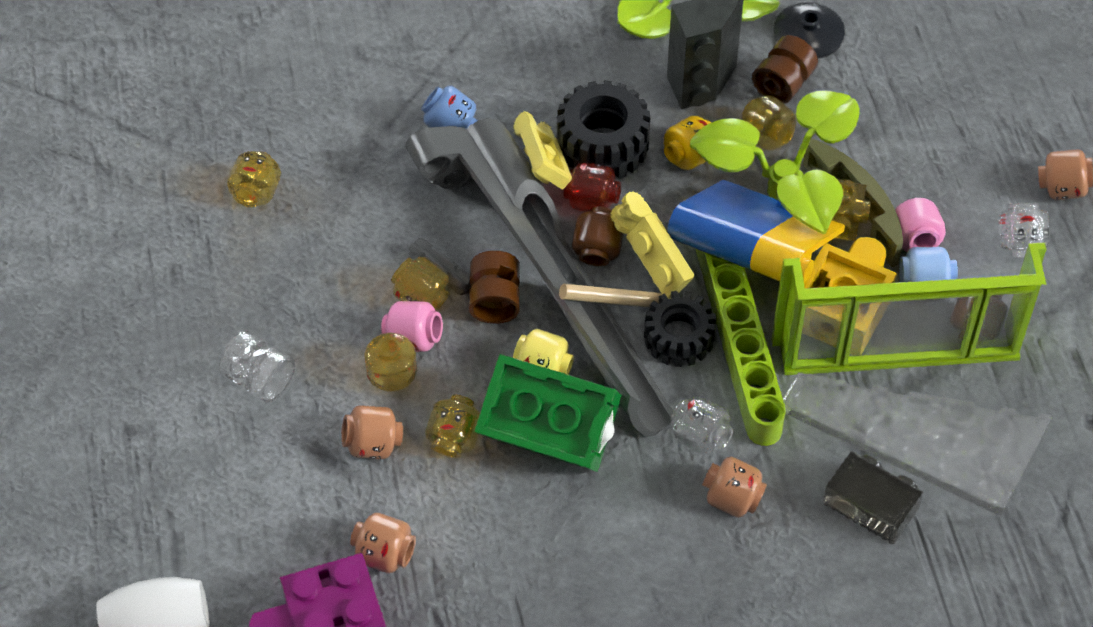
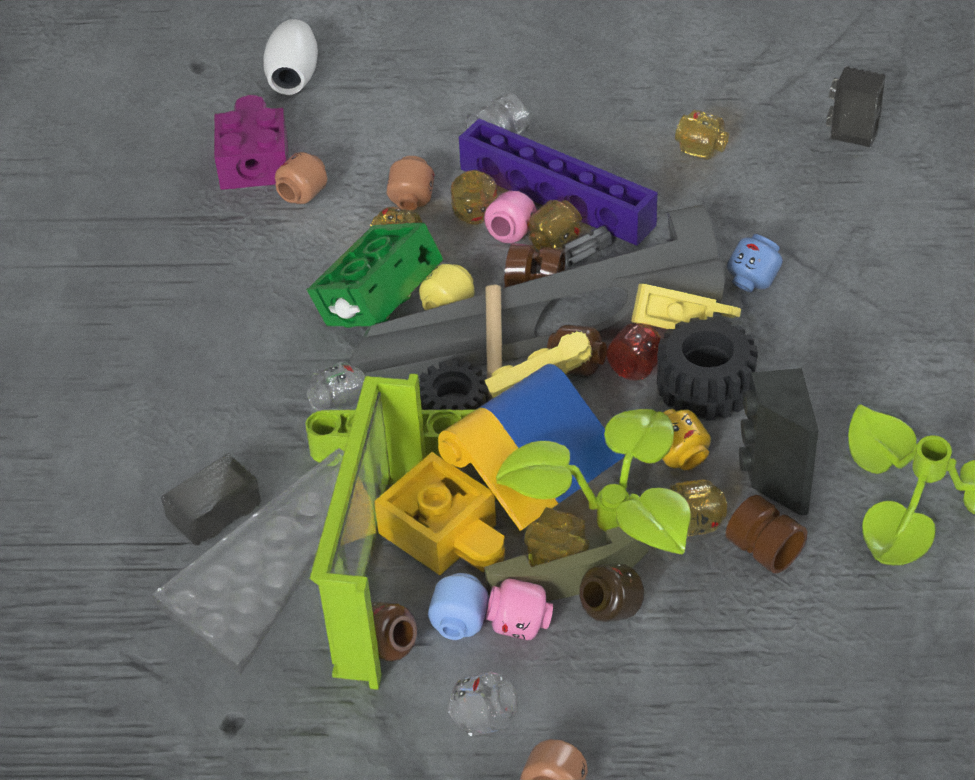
camera: 105 degrees right, 10 degrees down
(209, 46) = (856, 106): none -> clear smoke brick
(355, 290) = (547, 175): none -> dark purple brick
(734, 486) = (263, 400): nougat head -> none
(814, 24) = (841, 602): black dish -> none
(884, 160) = (611, 592): none -> dark brown head

